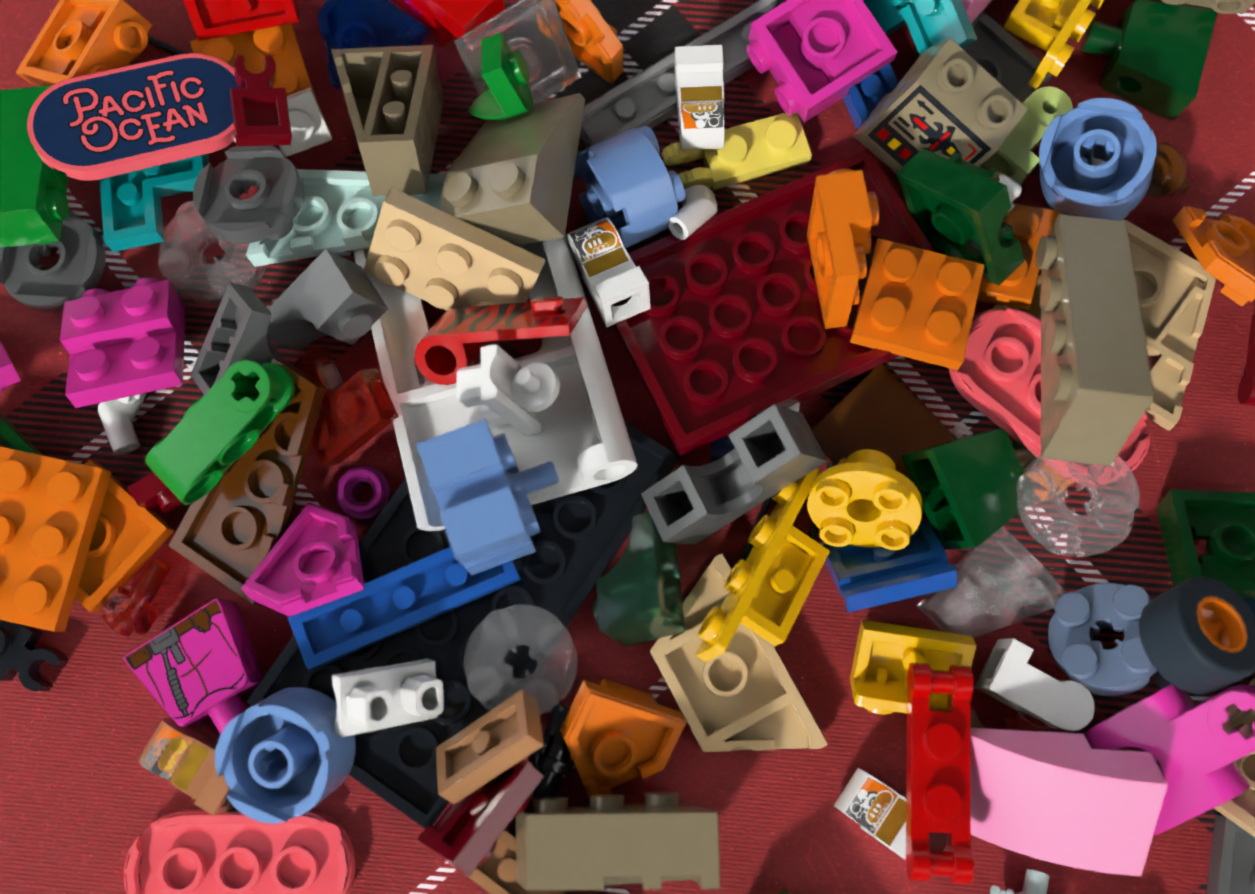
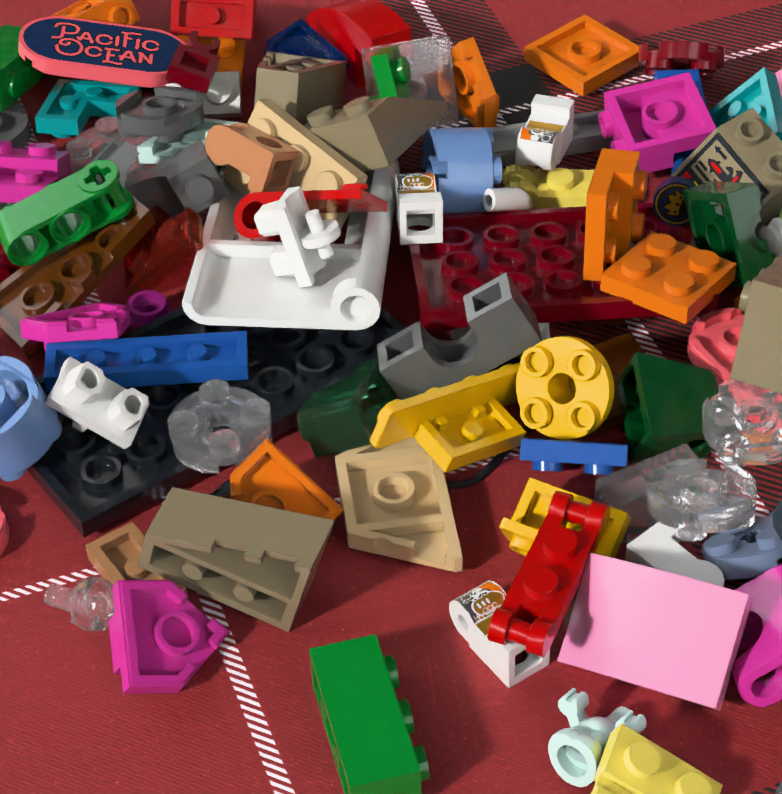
camera: 20 degrees right, 35 degrees down
(402, 273) = (254, 153): none -> nougat leg
(471, 827) = (128, 500): dark red plate -> none
(483, 495) = (244, 276): medium blue brick -> none
(488, 746) = (145, 464): medium nougat plate -> none
(880, 169) = (669, 201): none -> tile
(1049, 648) = (701, 498): none -> clear plate

